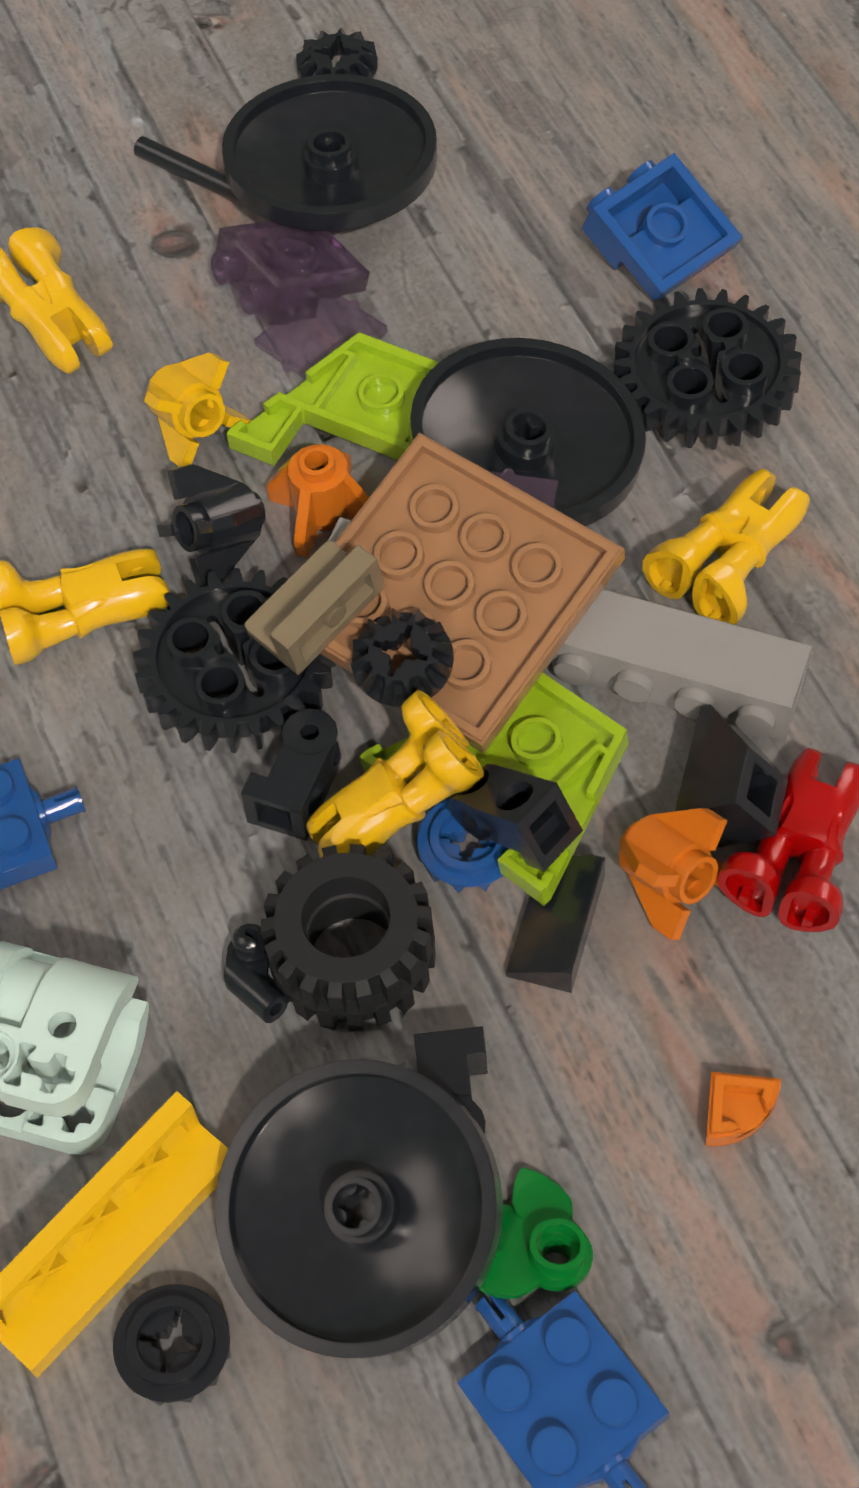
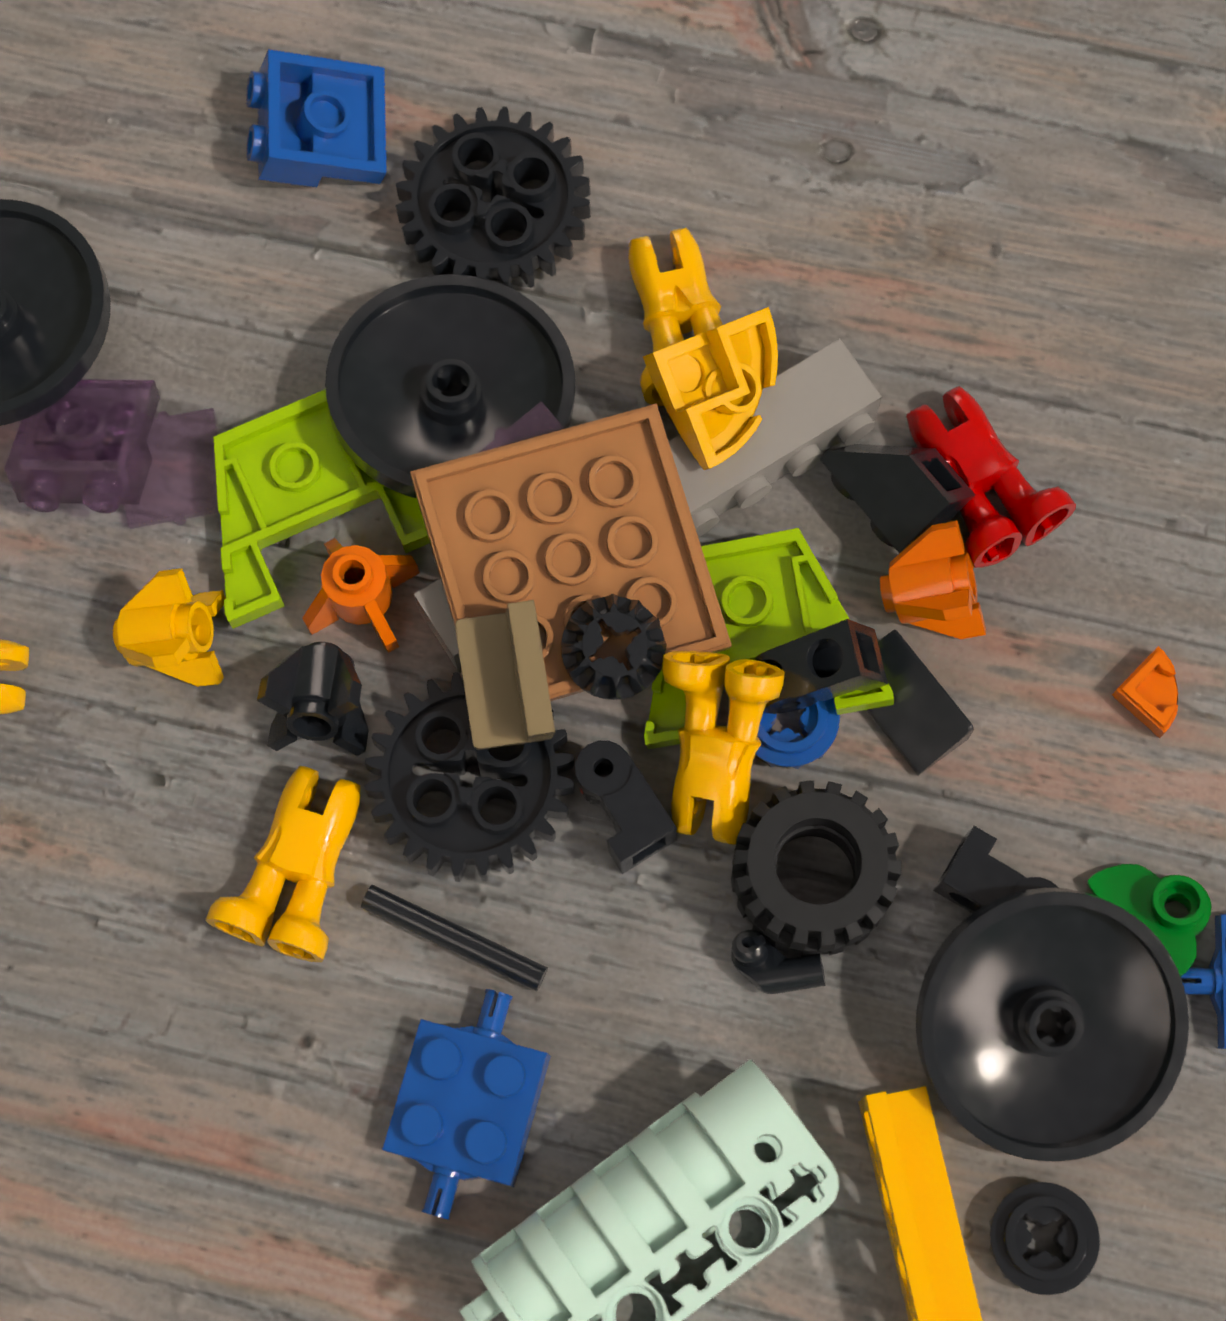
camera: 55 degrees left, 15 degrees up
(103, 743) = (454, 937): none -> black bar
(687, 583) = (717, 383): none -> yellow brick

